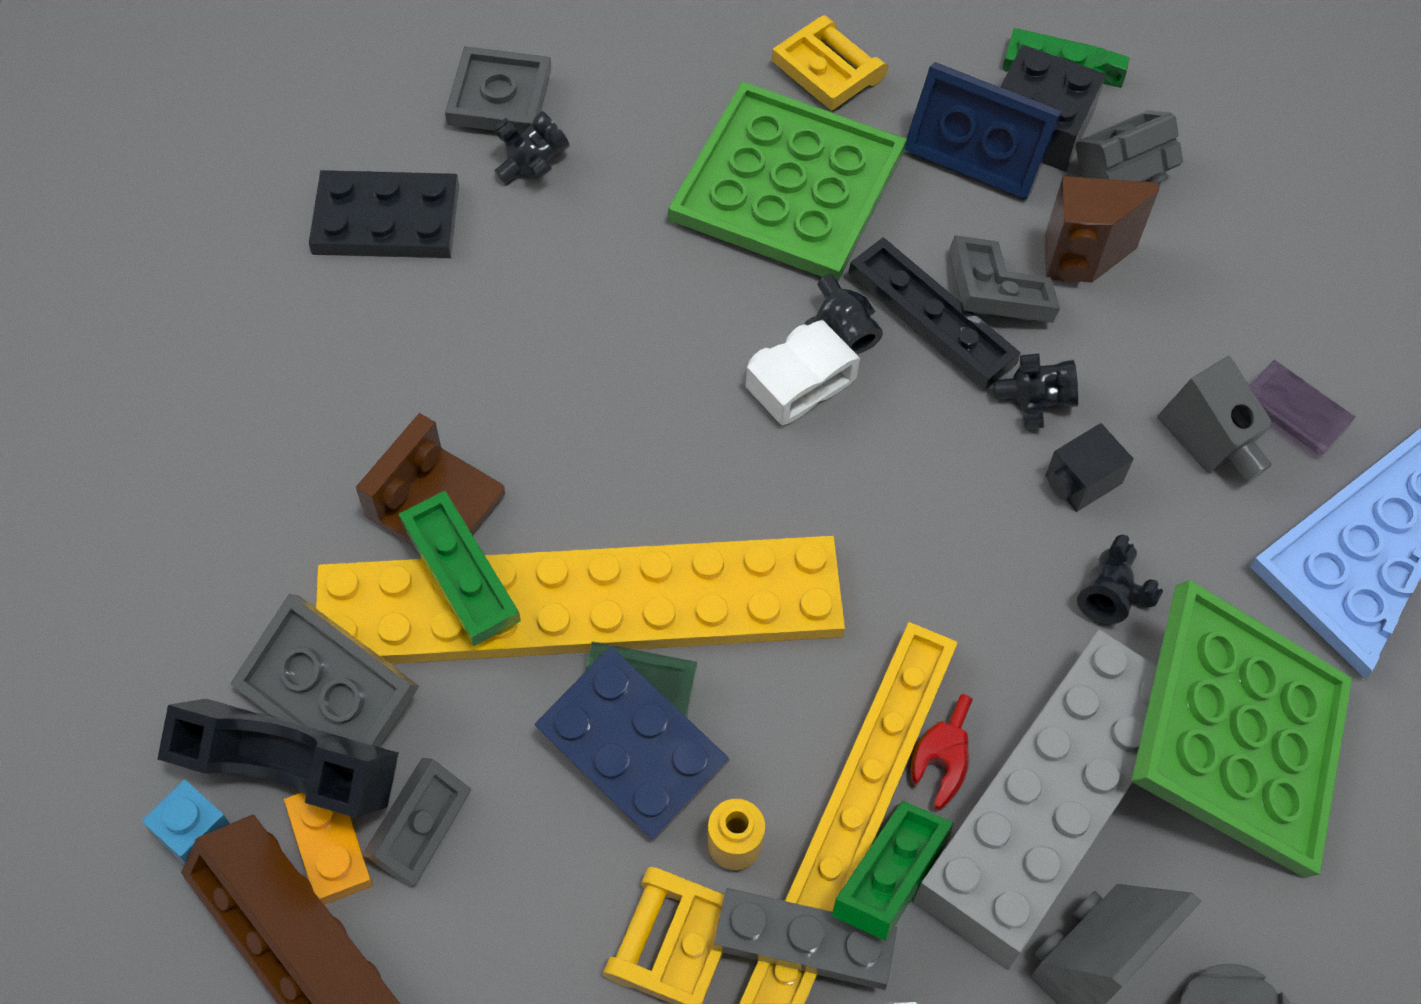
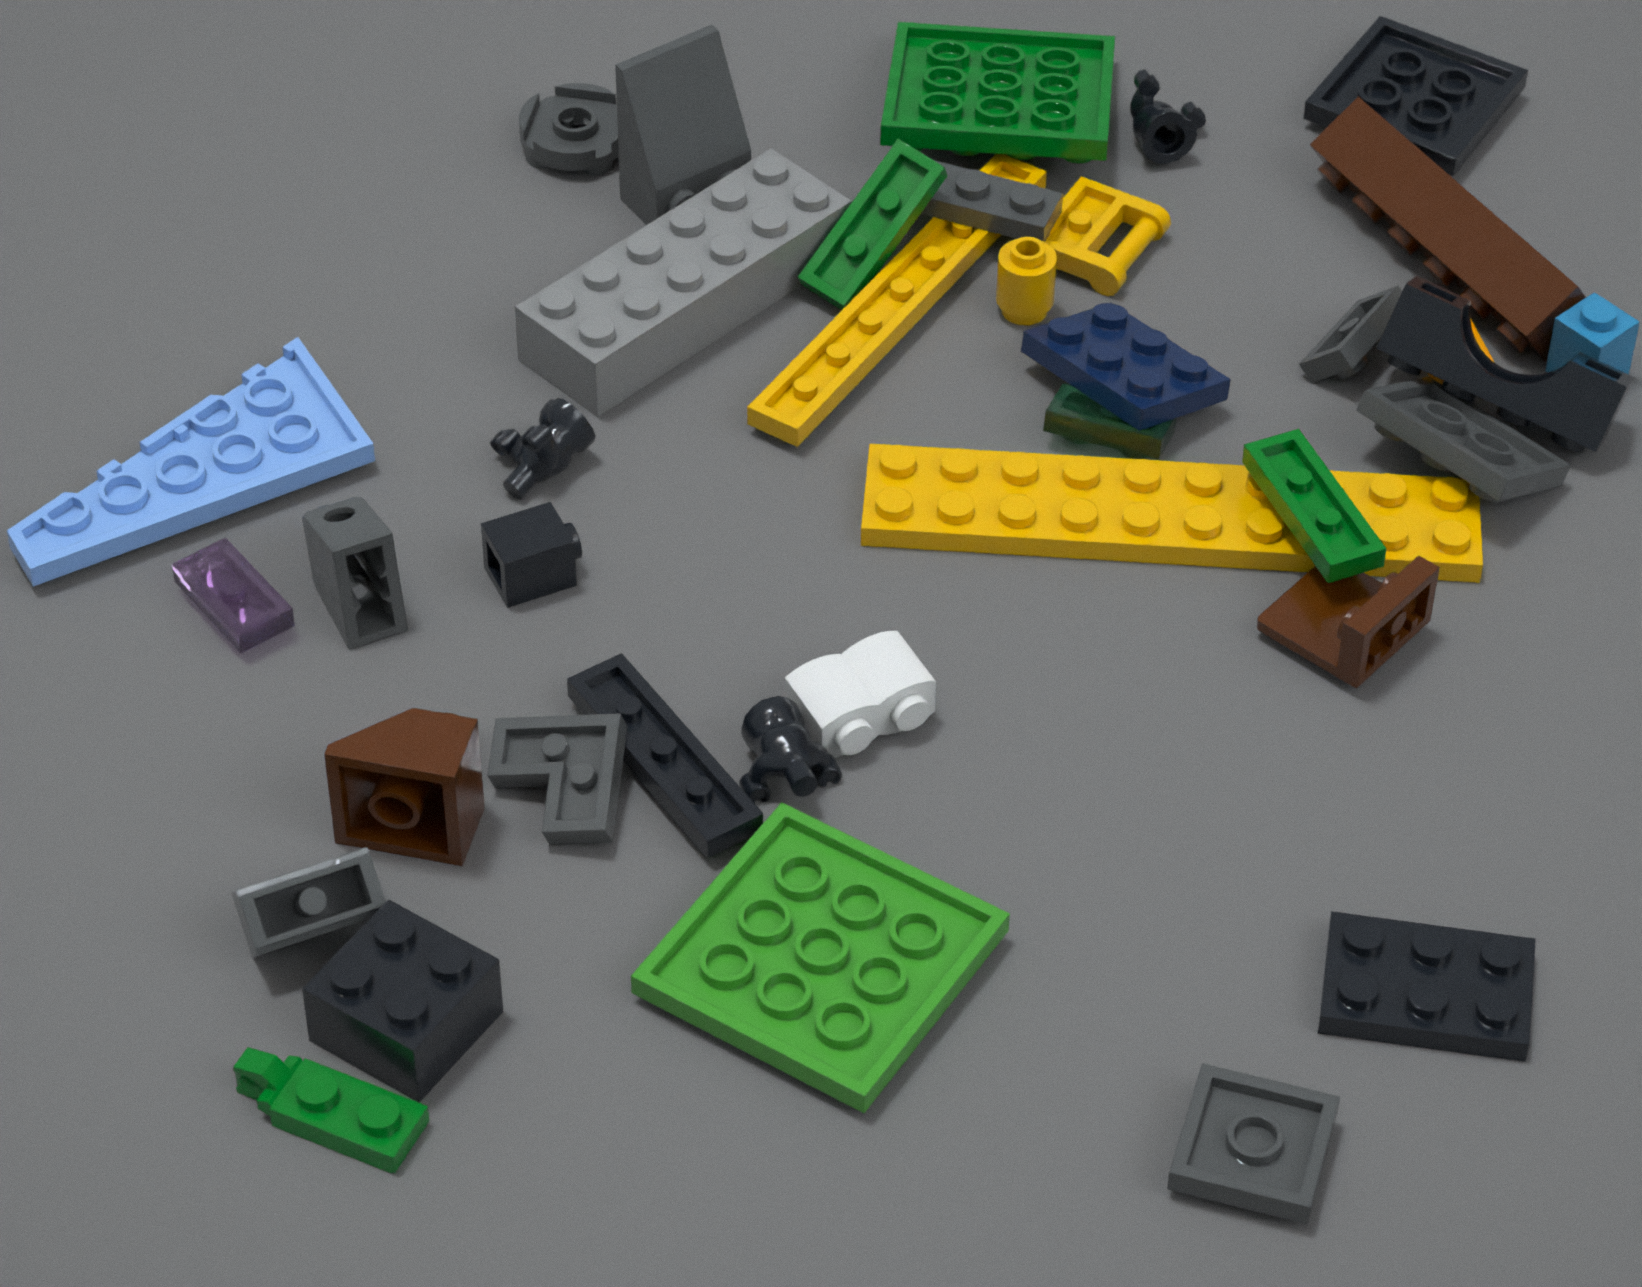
camera: 170 degrees left, 15 degrees down
(531, 149) = (1200, 1034): black piece -> none
(821, 69) = (729, 1120): yellow plate -> none
(948, 747) = (784, 338): red hand -> none
(981, 130) = (520, 946): dark blue plate -> none
(1038, 387) = (551, 651): black piece -> none
(1244, 730) = (474, 277): bright green plate -> none

